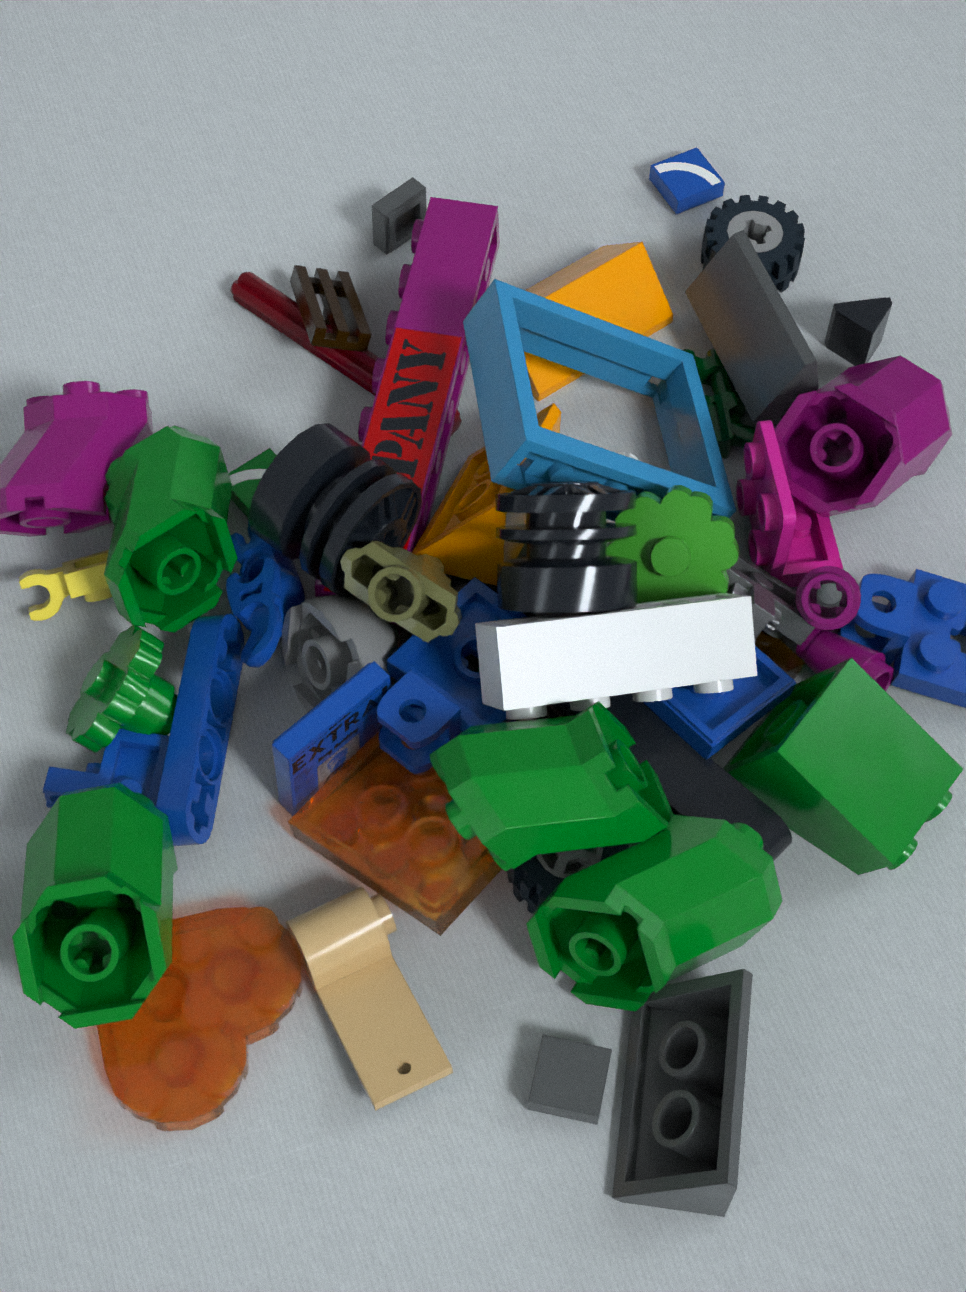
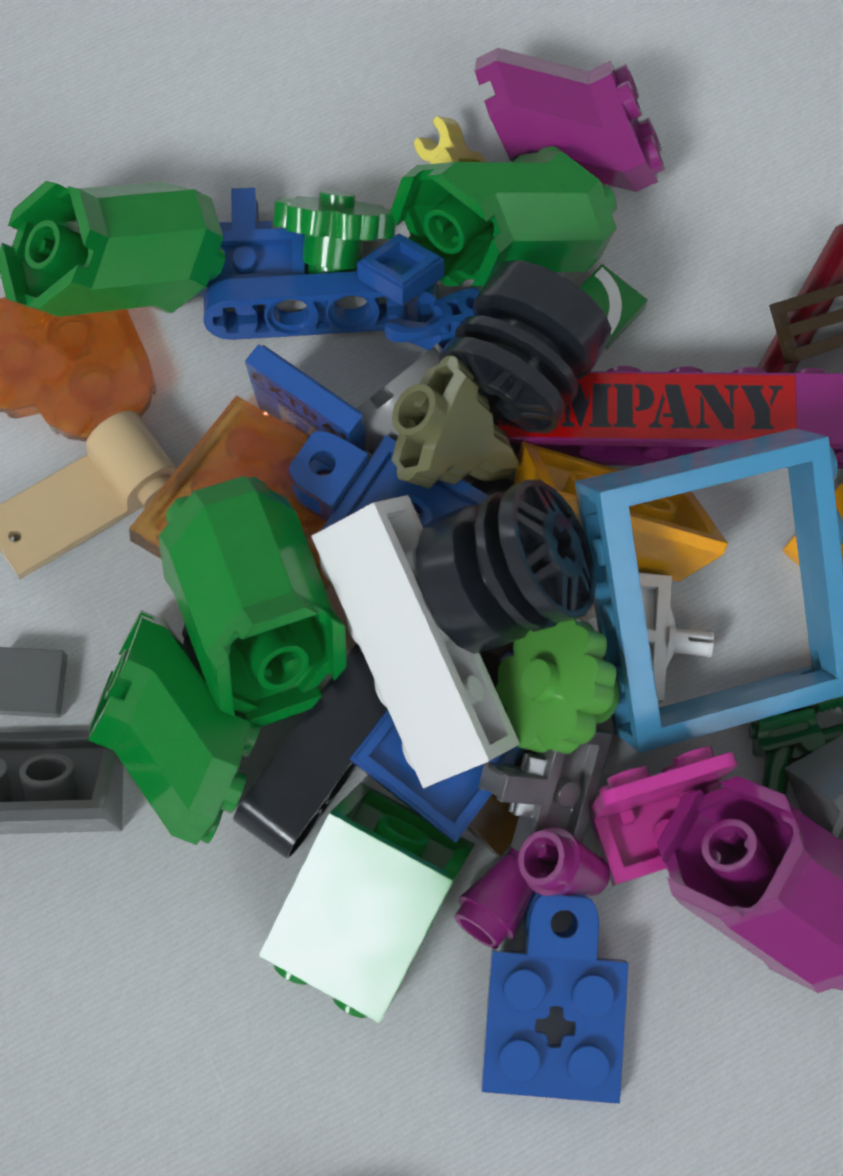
camera: 80 degrees right, 15 degrees up
(196, 631) = (400, 269): none -> blue tile

